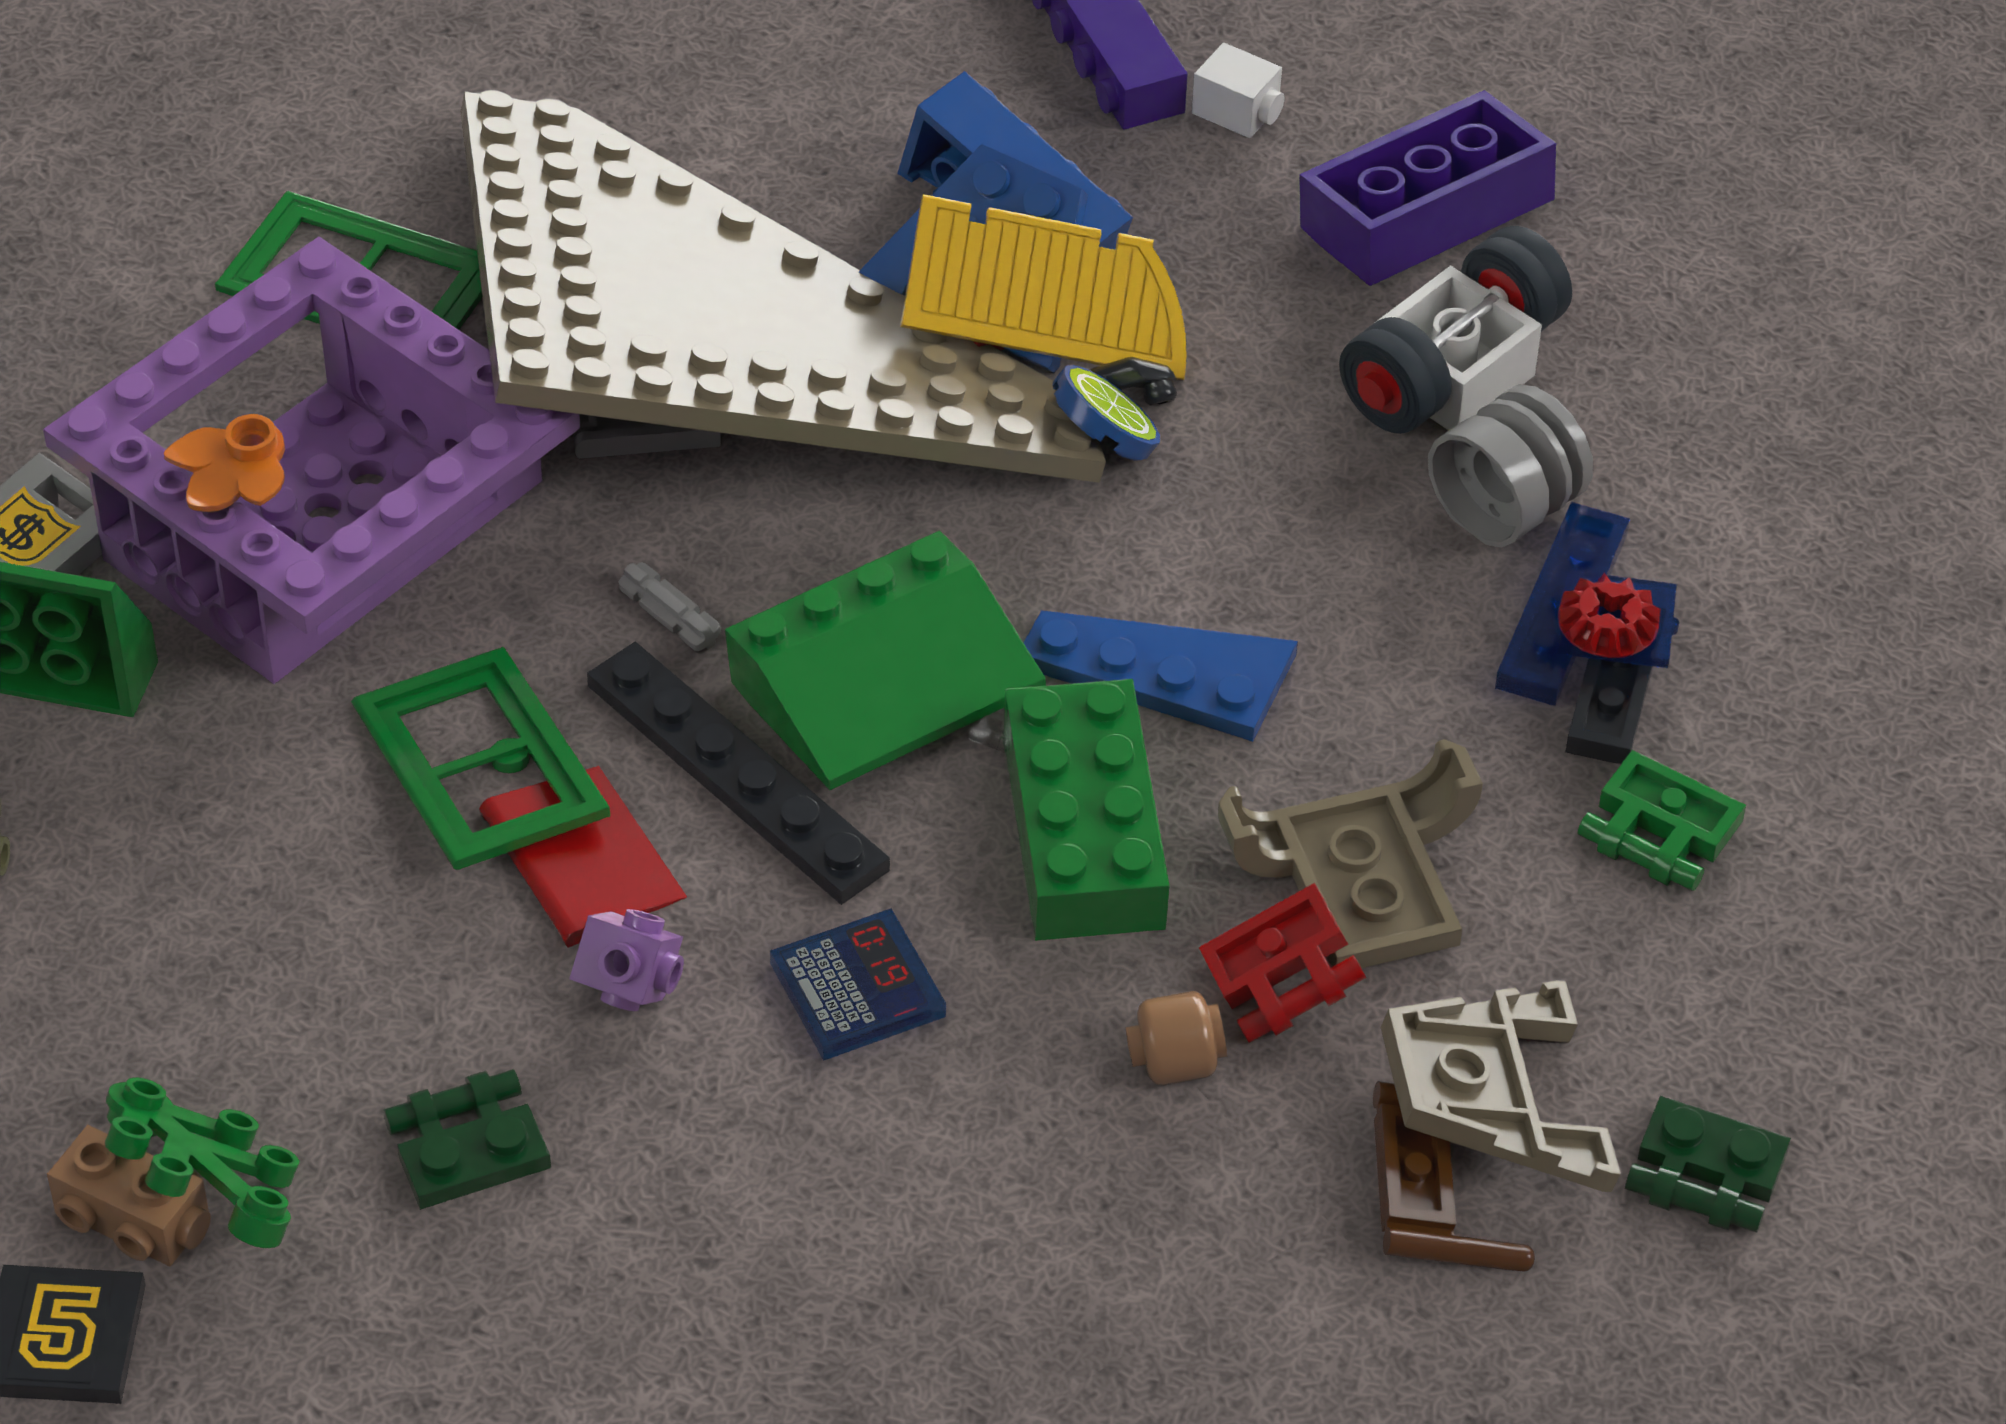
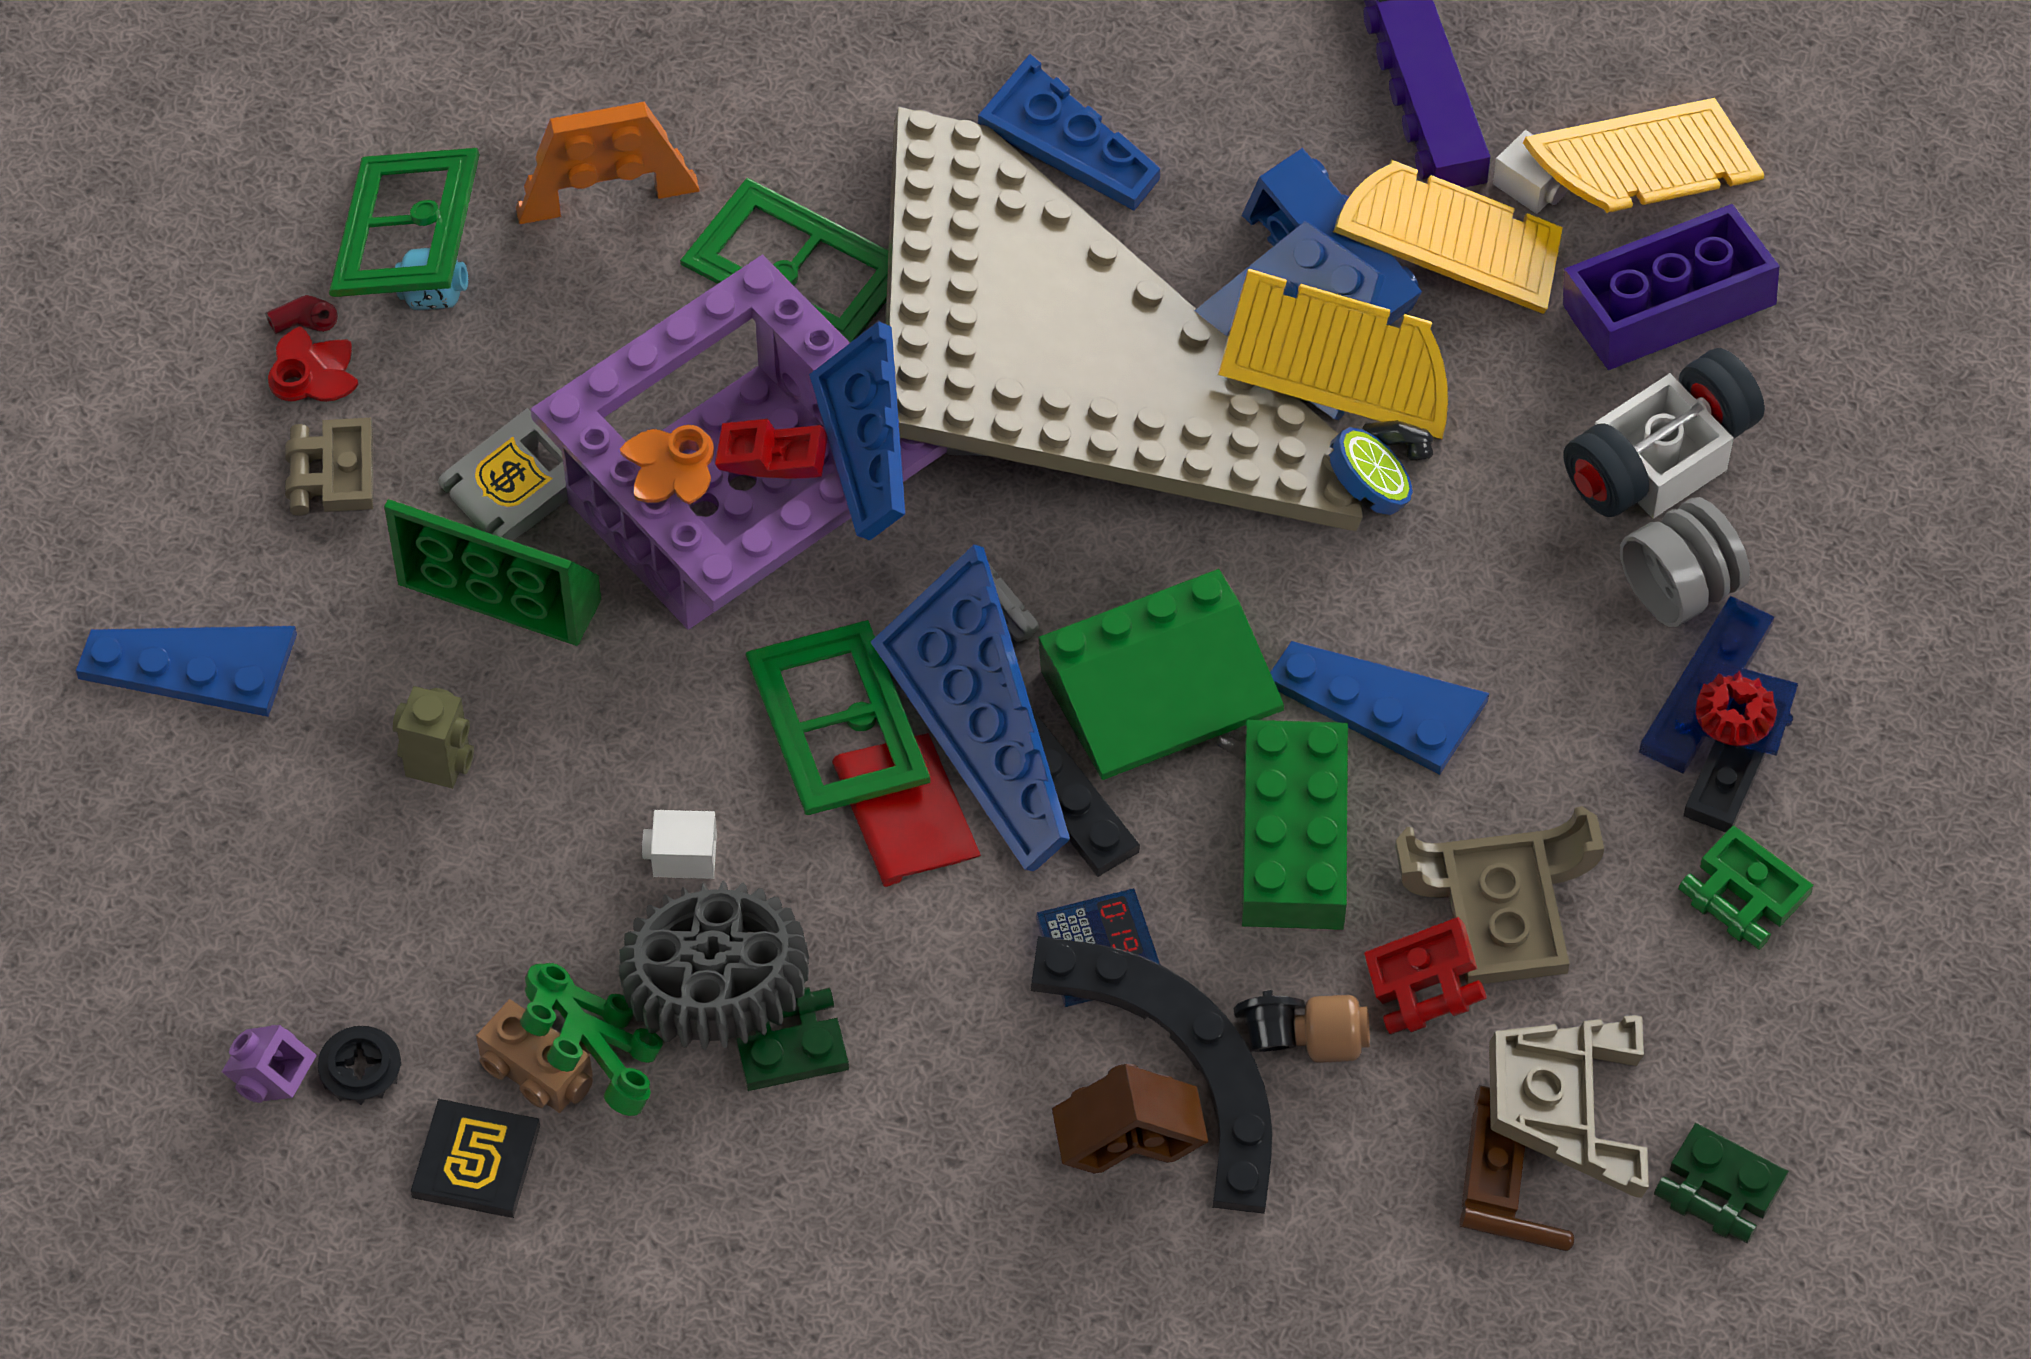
camera: 10 degrees right, 10 degrees up
(100, 153) = (601, 148): none -> orange wing
(295, 922) = (681, 844): none -> white brick
(344, 440) = (762, 451): none -> red slope
(356, 1055) = (721, 972): none -> dark grey gear
(472, 394) = (862, 427): none -> blue wing
(628, 958) = (927, 909): medium lavender brick -> none
(645, 700) = (967, 686): none -> blue wing
(660, 104) = (1057, 129): none -> blue wing
(927, 1166) = (1126, 1116): none -> reddish brown brick
(1002, 1062) = (1199, 1031): none -> black plate
(1094, 1037) = (1270, 1020): none -> black piece
(1159, 156) = (1454, 234): none -> yellow piece
(1370, 57) = (1647, 155): none -> yellow piece

